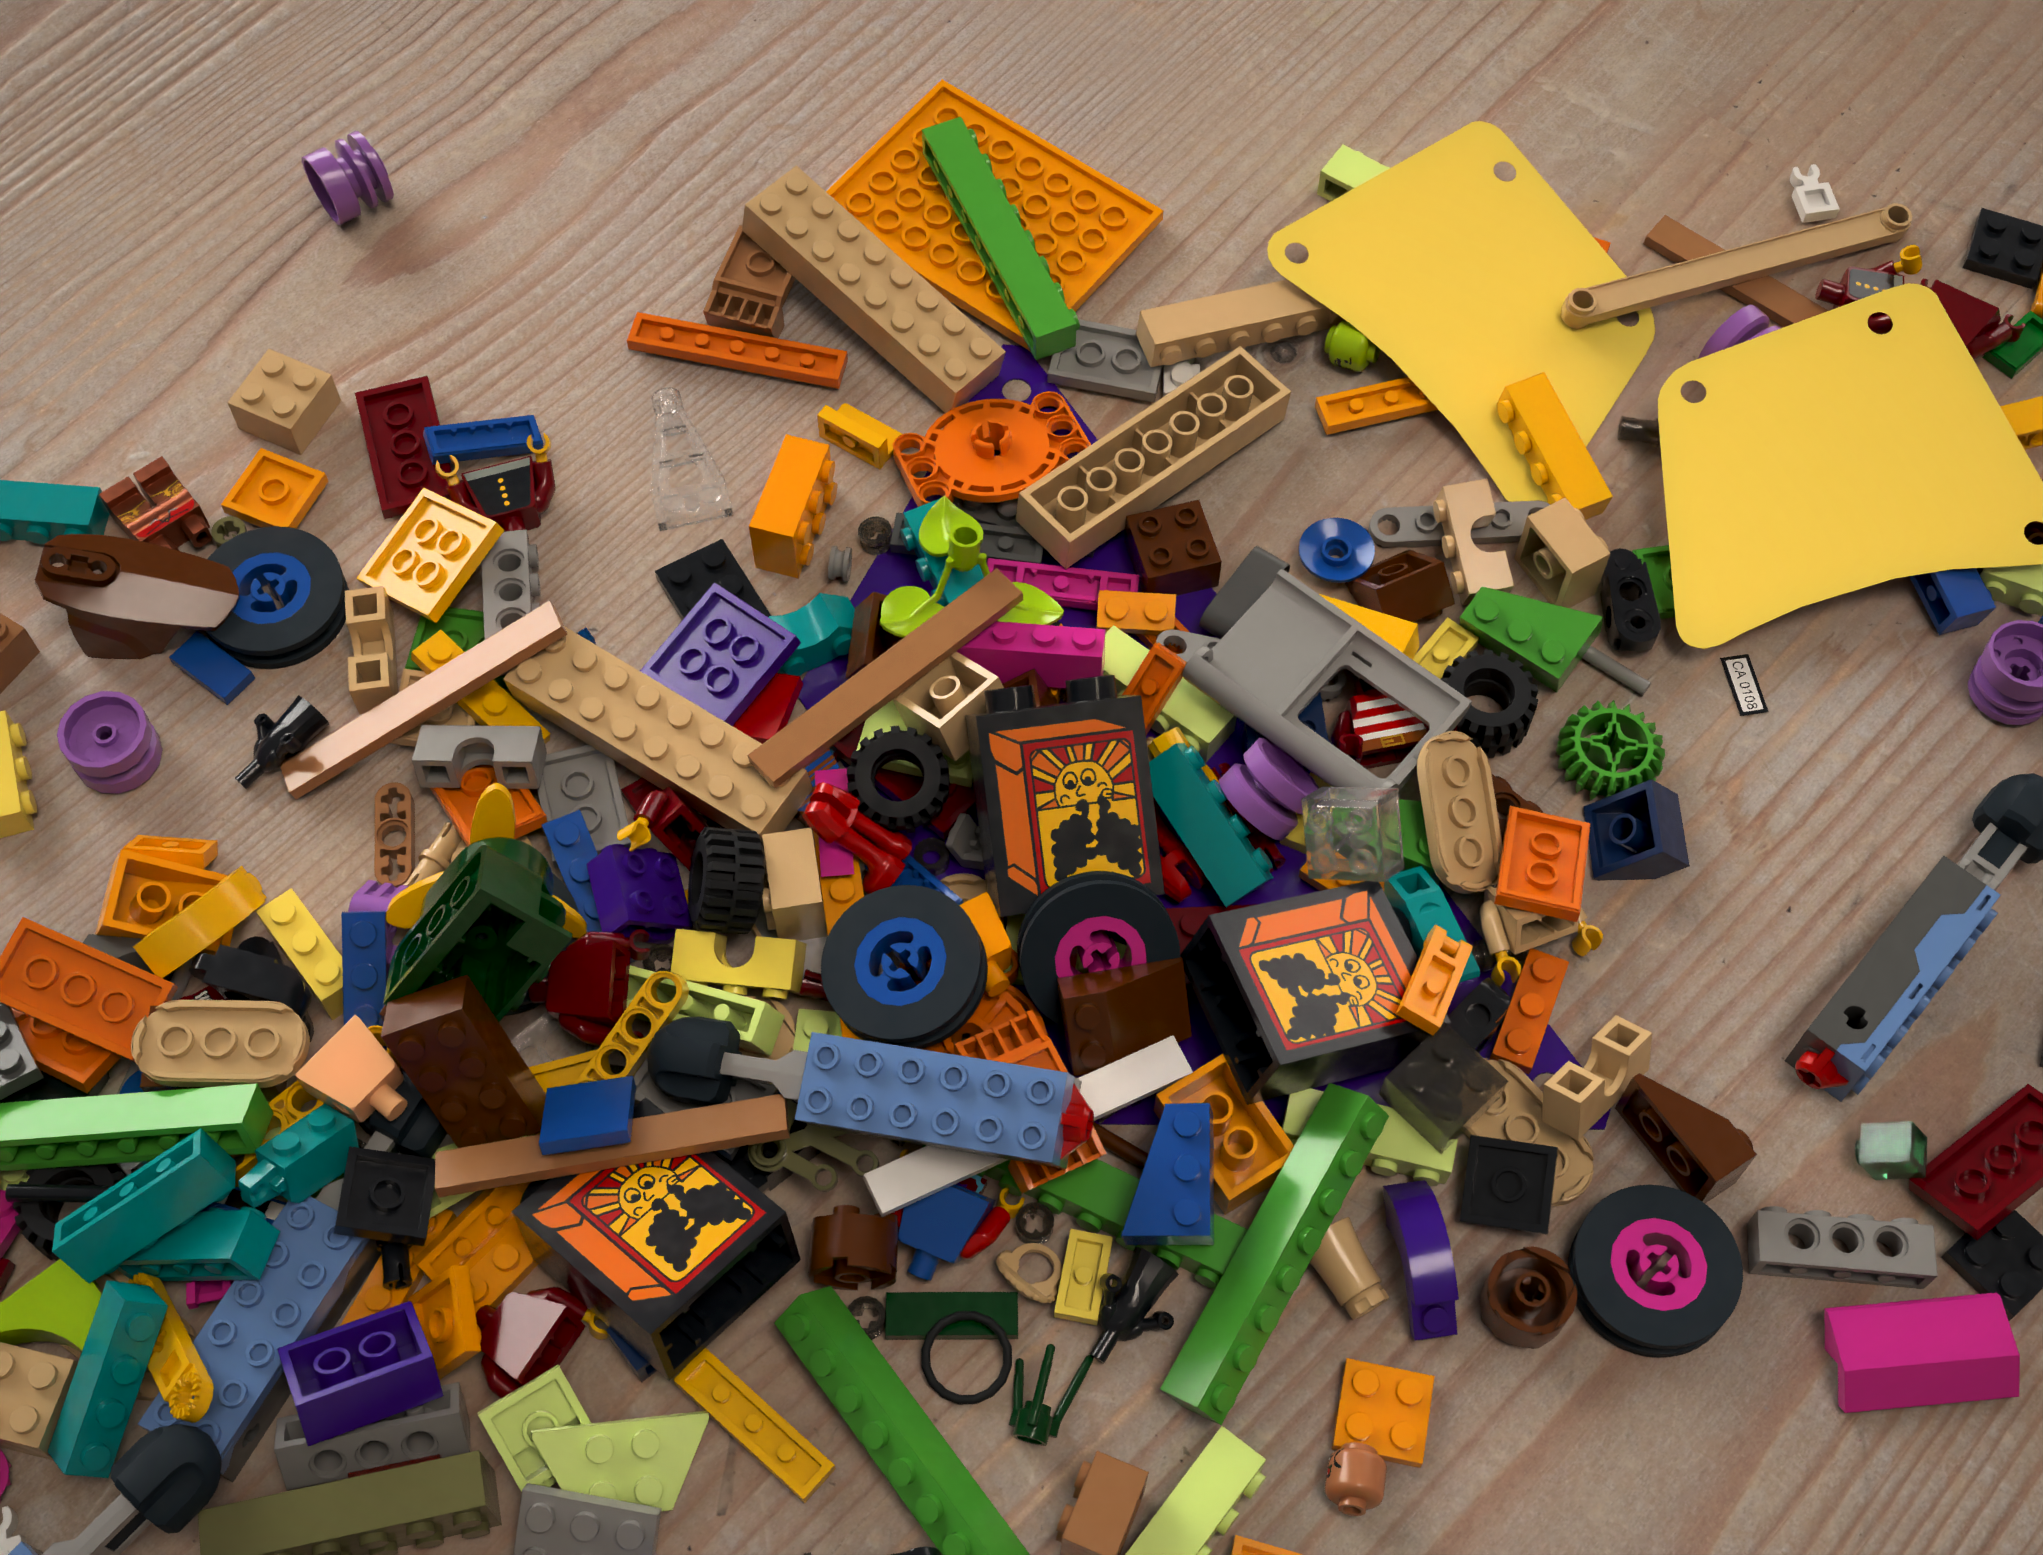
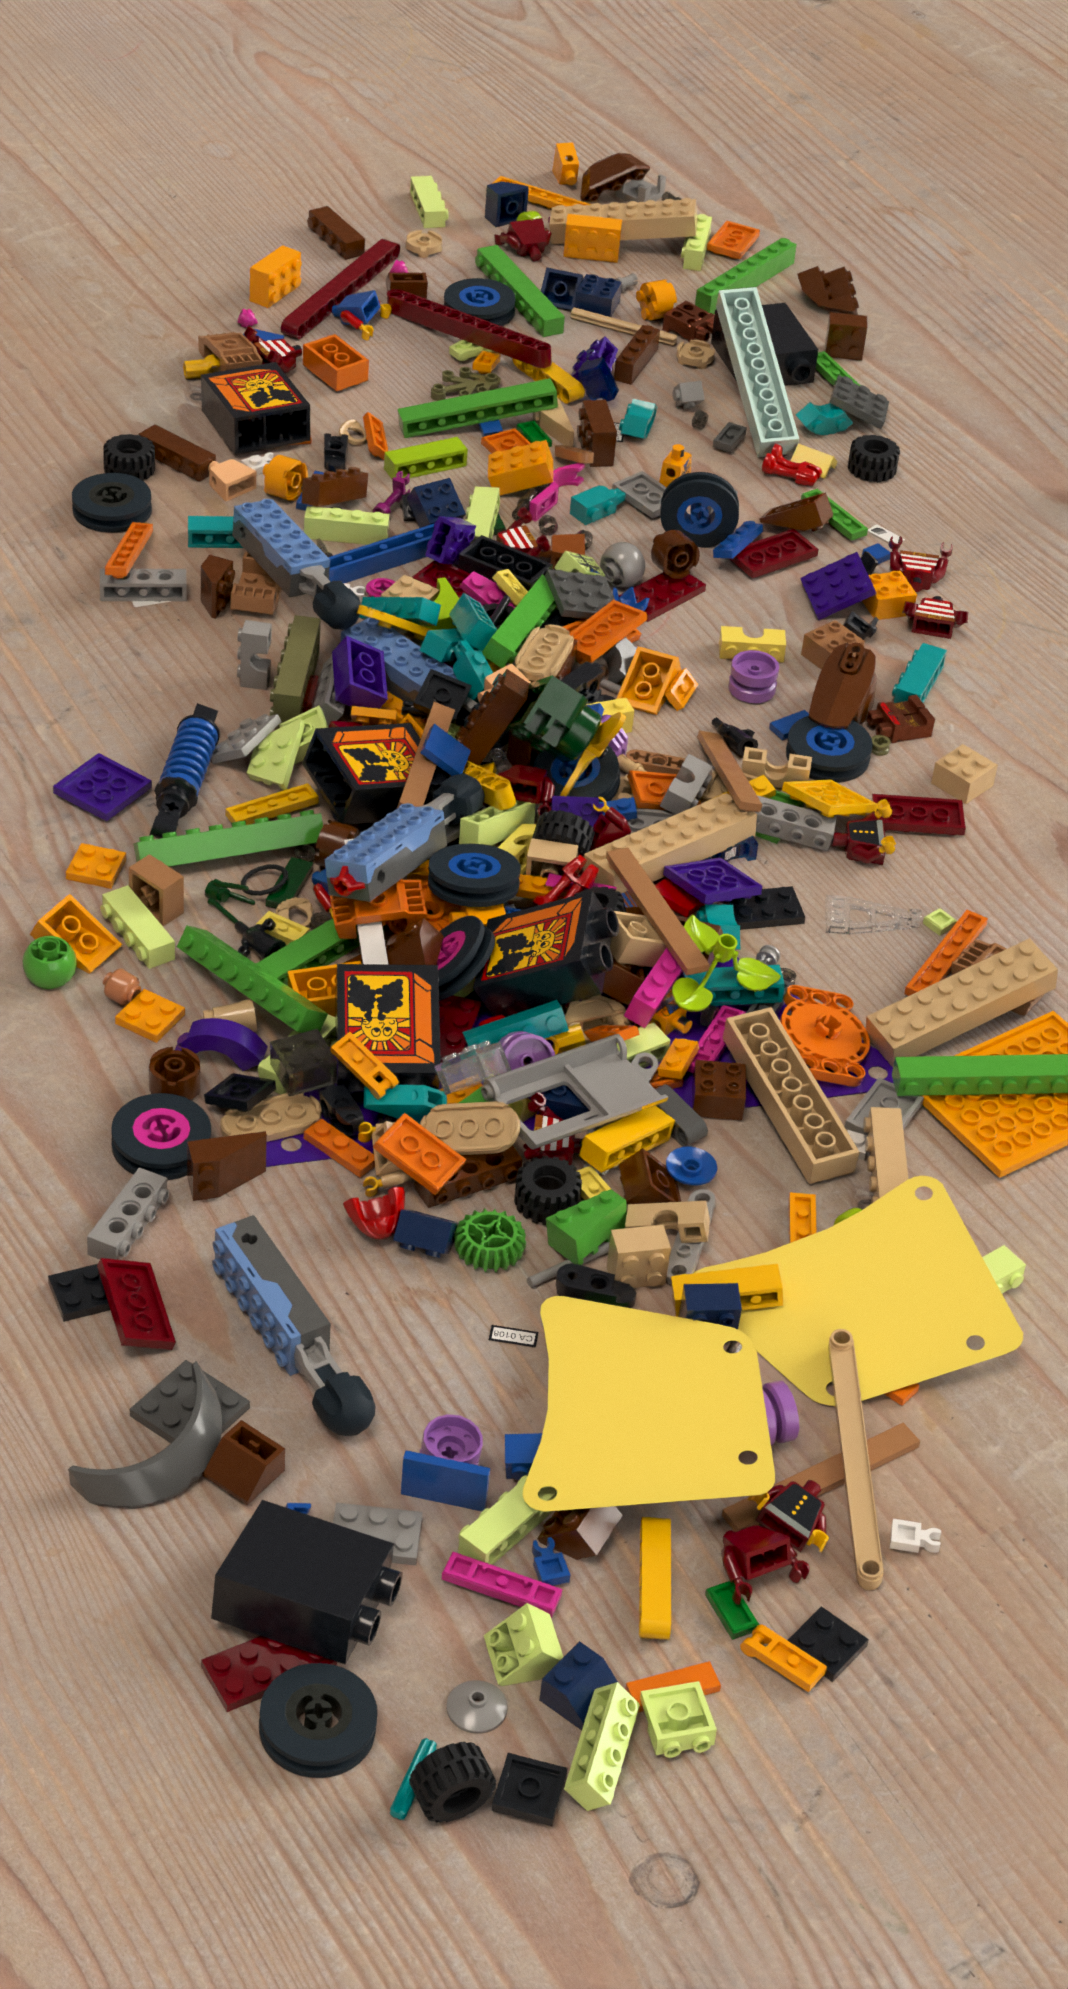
camera: 105 degrees right, 20 degrees down
(201, 922) = (629, 681): yellow arch -> none
(274, 491) = (902, 762): light orange plate -> none
(482, 439) = (910, 840): blue plate -> none
(653, 375) = (939, 921): none -> yellowish green tile
(793, 506) = (810, 936): light orange brick -> none
(857, 434) = (865, 989): yellow panel -> none
(1177, 1182) = (305, 946): blue wedge -> none
(1581, 1096) = (285, 1158): tan arch -> none
(1621, 447) = (712, 1303): none -> dark blue brick
(1649, 903) = (377, 1216): none -> red hair
(1892, 1150) = (169, 1255): clear green brick -> none
(1922, 1352) = (53, 1225): dark pink slope -> none

